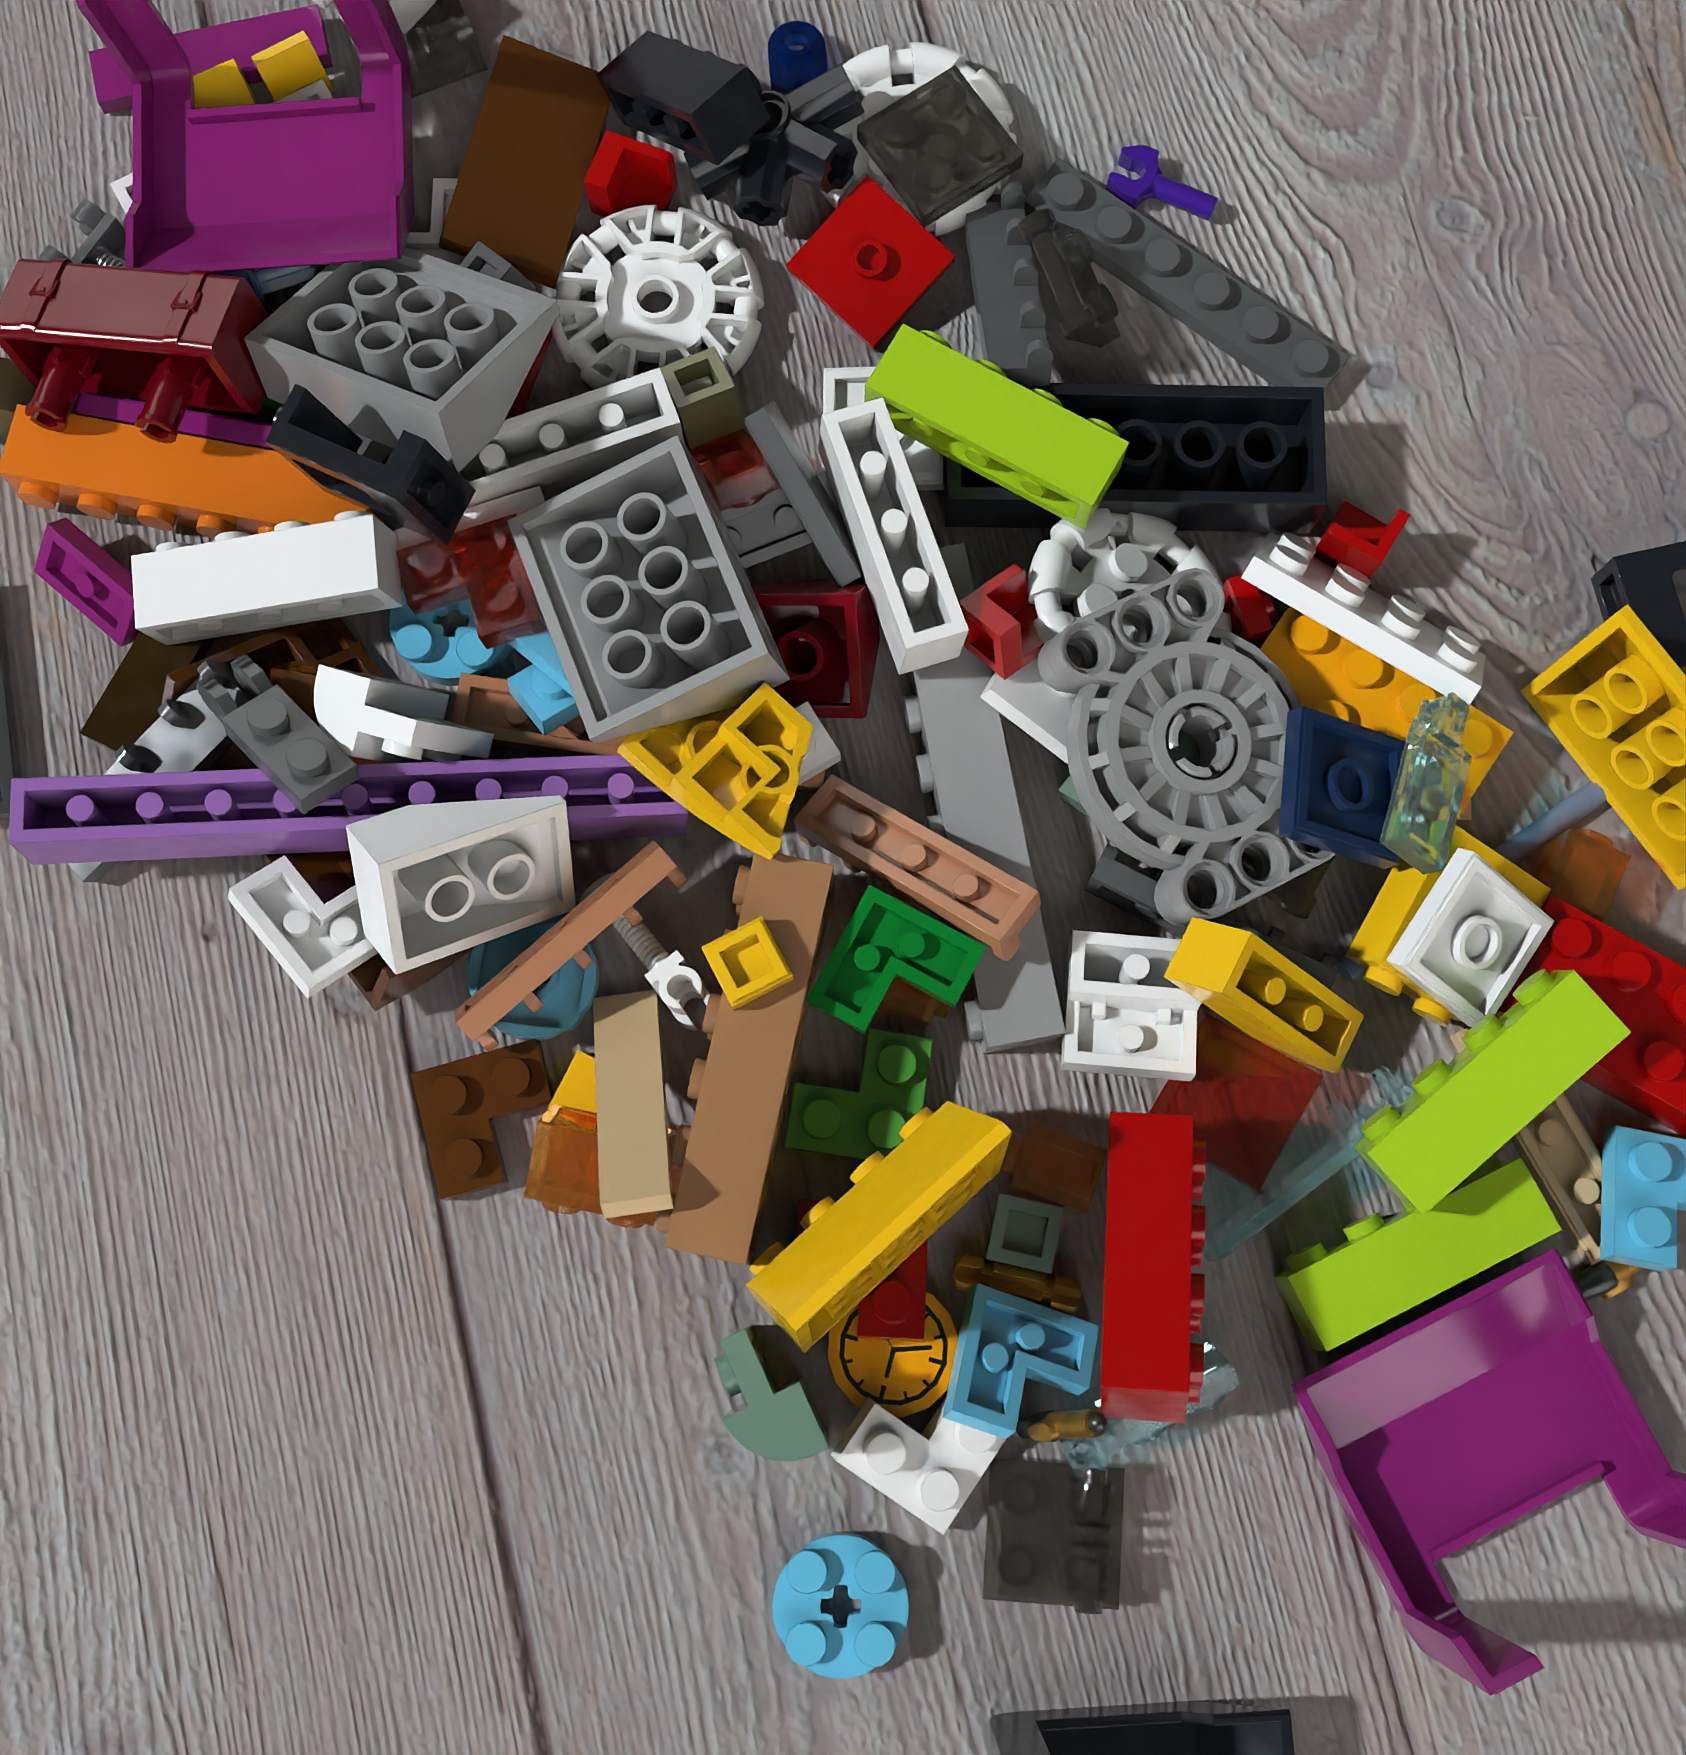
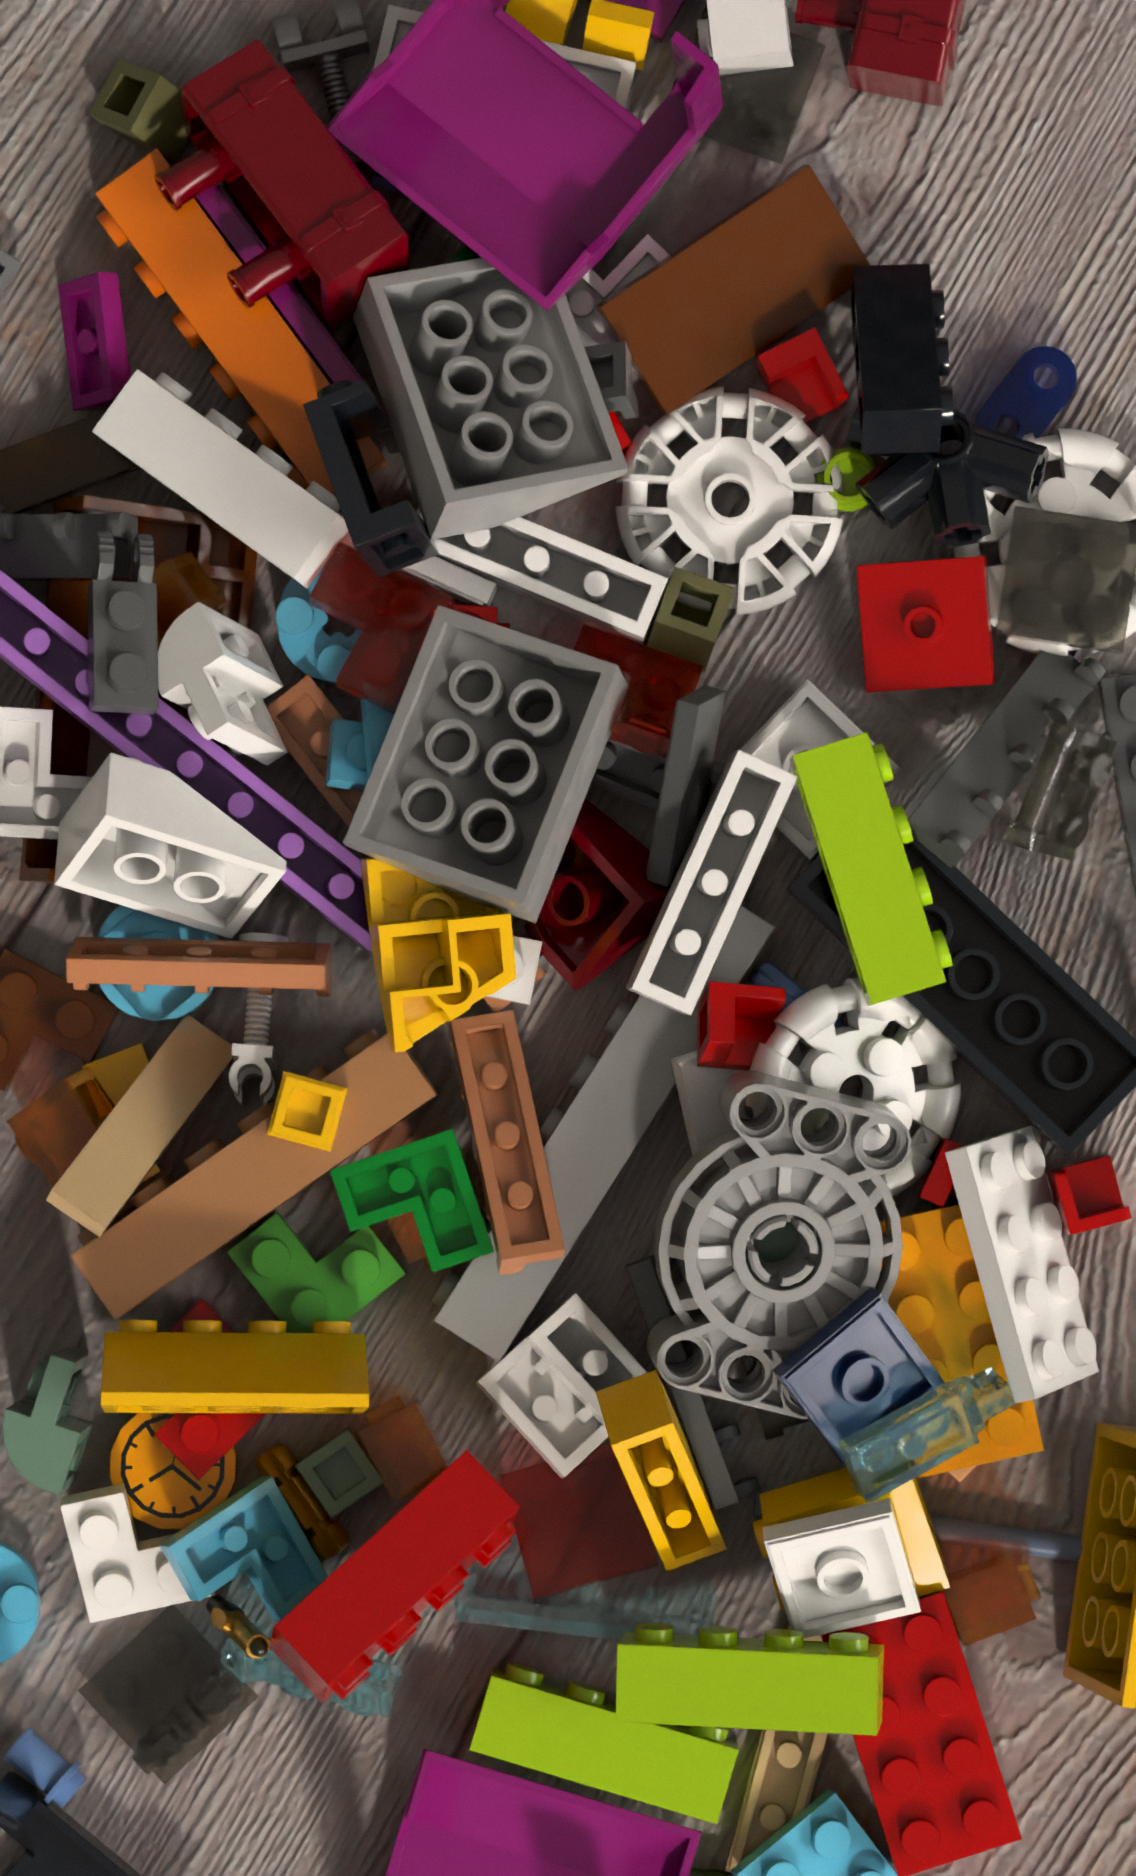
camera: 45 degrees right, 10 degrees up
(720, 209) = (853, 467): none -> lime plate
(1015, 1688) = (45, 1768): none -> medium blue pin

